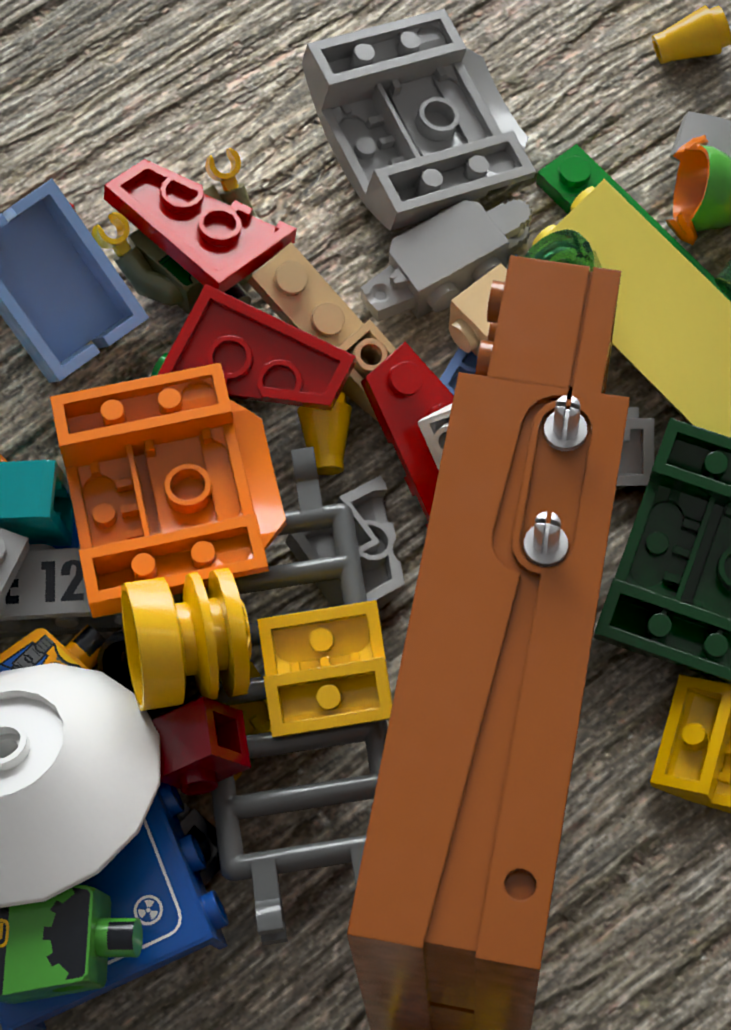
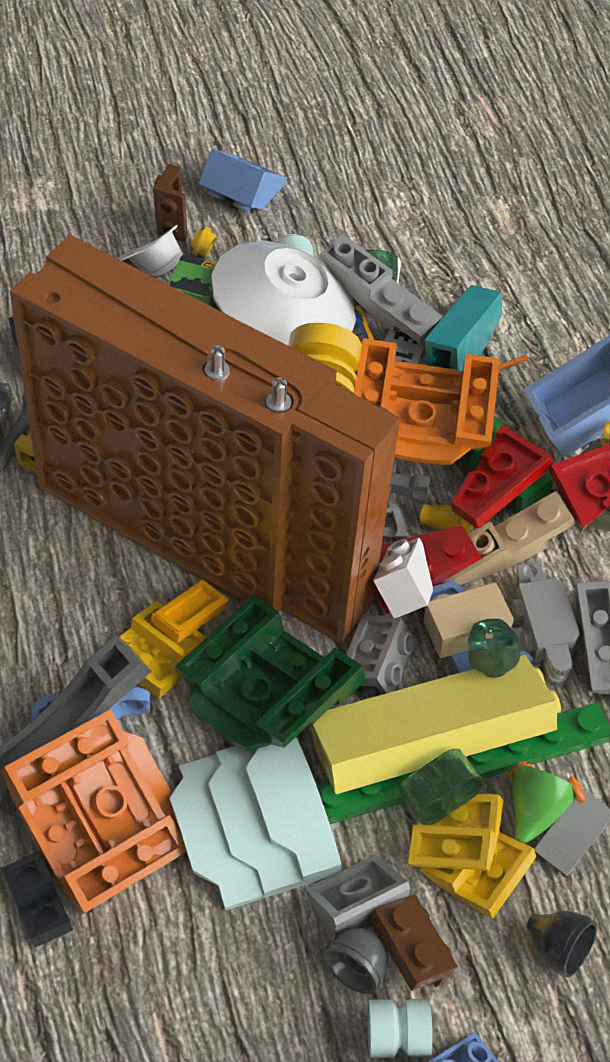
camera: 110 degrees right, 10 degrees down
(649, 722) = (189, 611): none -> light orange tile

